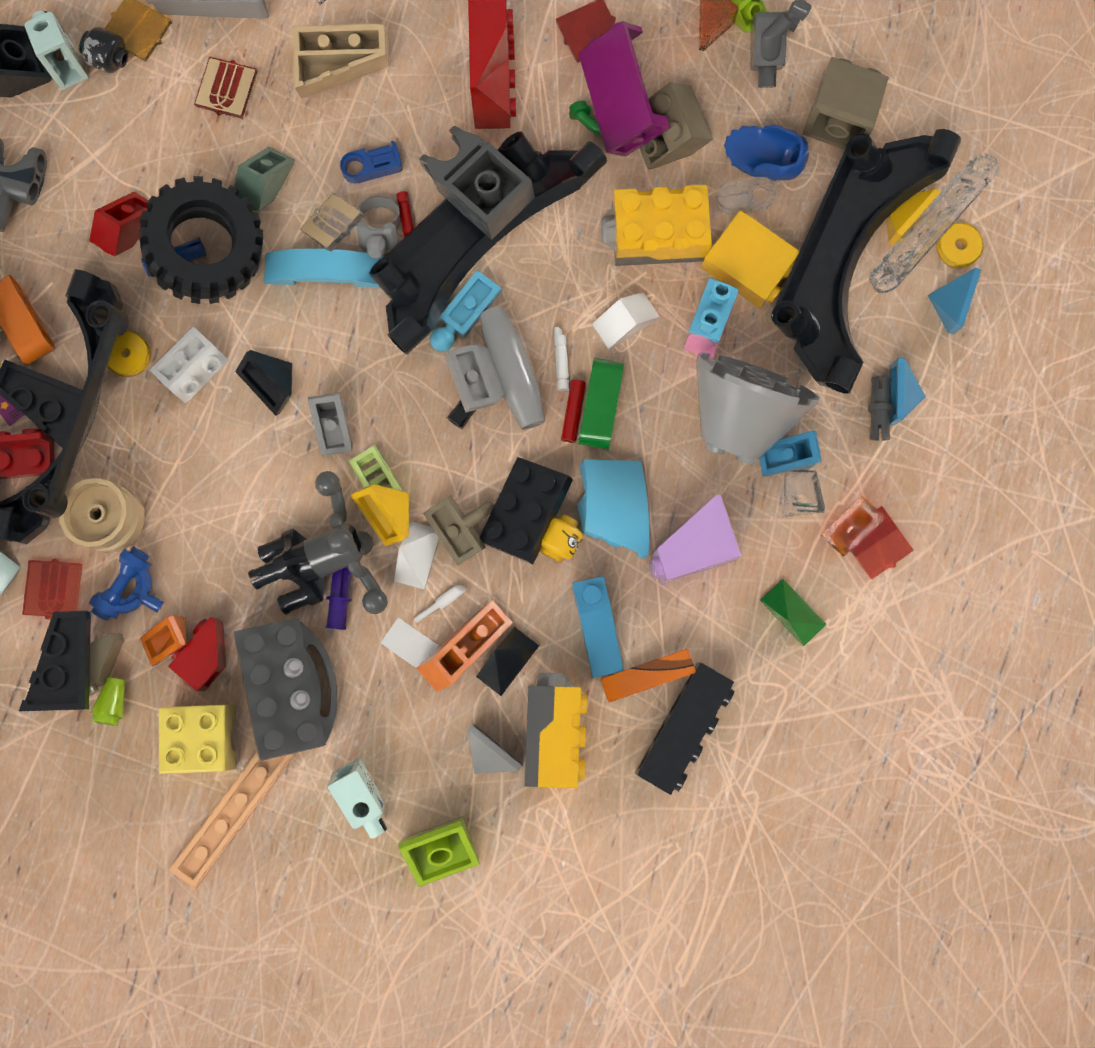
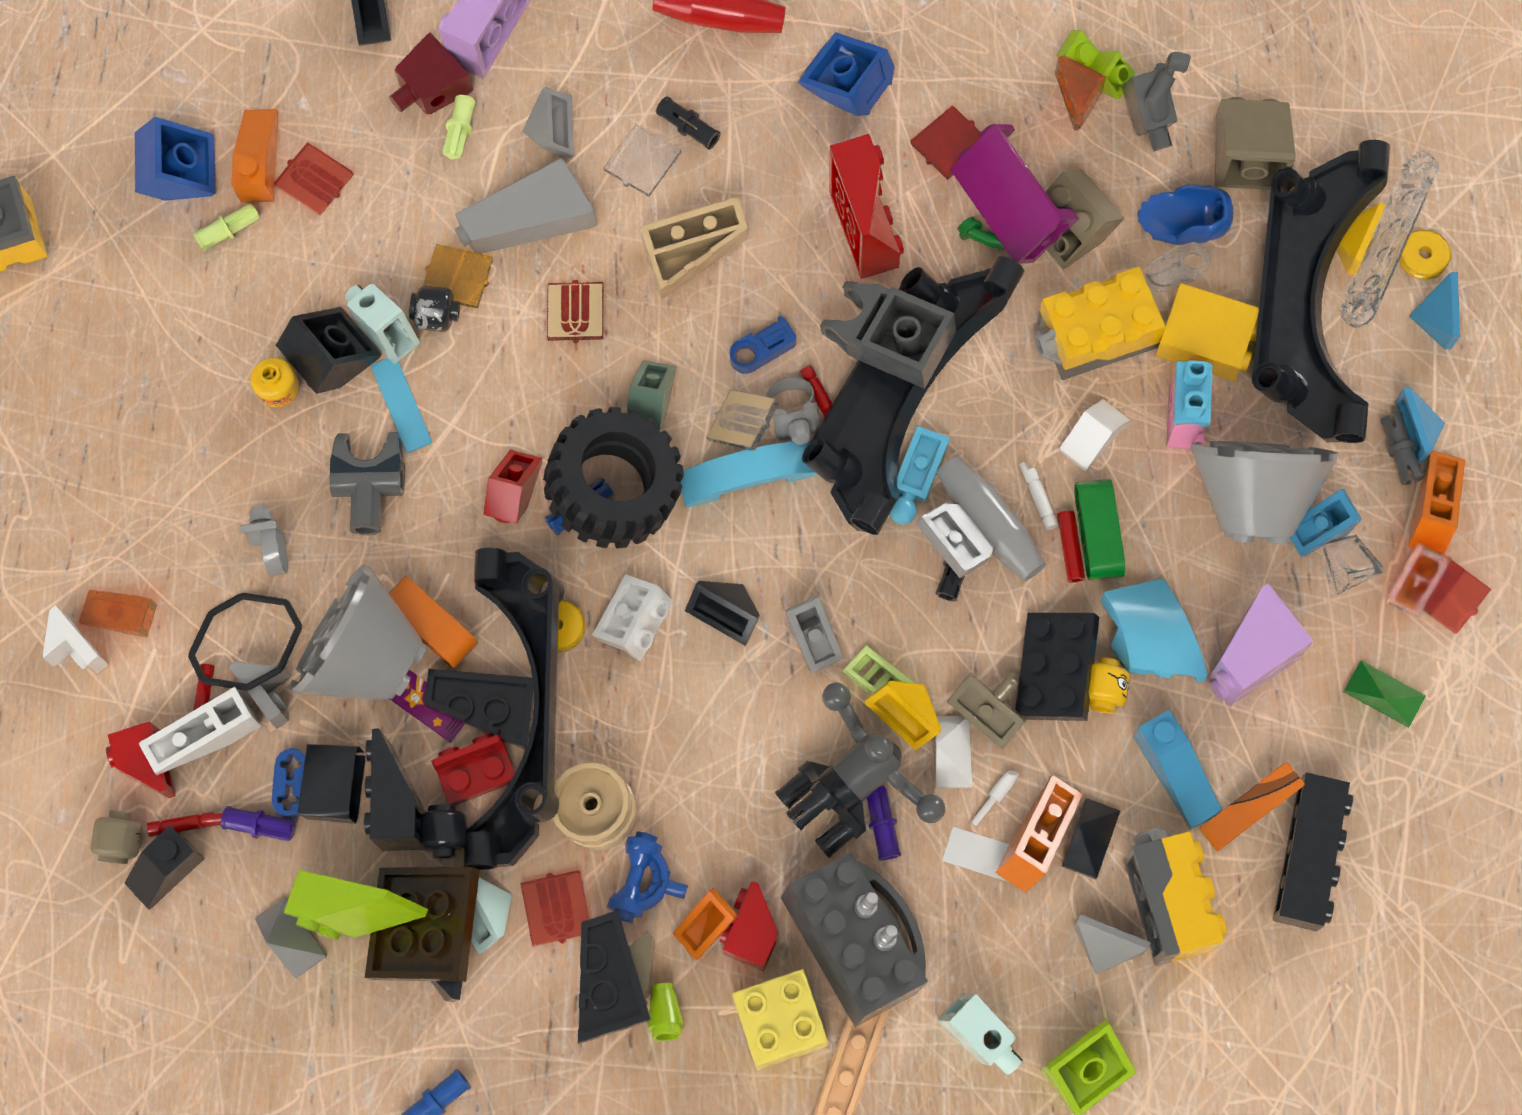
camera: 10 degrees left, 10 degrees down
(57, 127) = (401, 405): none -> medium azure sticker
(894, 464) = (1438, 502): none -> orange slope

